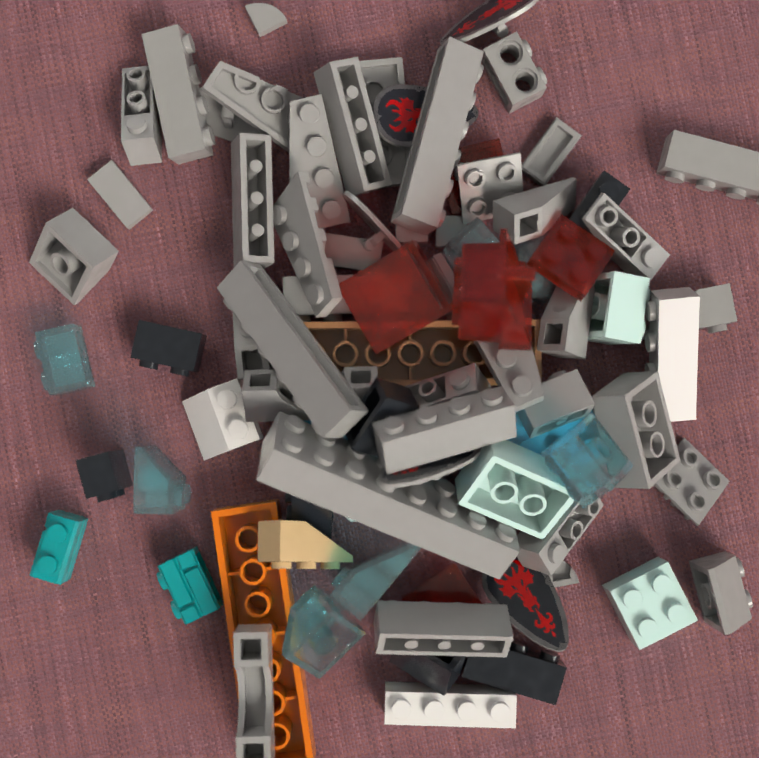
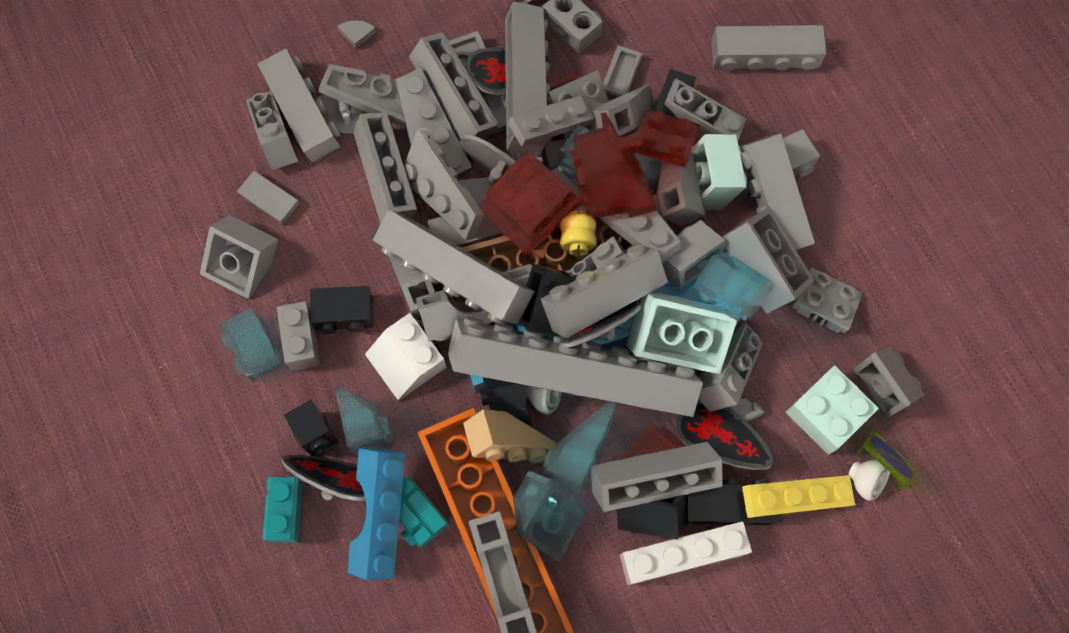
camera: 15 degrees left, 15 degrees down
(113, 366) = (298, 336): none -> light grey brick
(123, 535) = (326, 474): none -> shield
(161, 552) = (381, 477): none -> dark azure arch
(438, 346) = (578, 233): none -> light yellow piece
(447, 205) = (550, 120): none -> light grey plate
(582, 684) = (798, 496): none -> light yellow plate
(663, 681) = (869, 478): none -> white brick
(690, 671) = (889, 459): none -> clear neon green piece

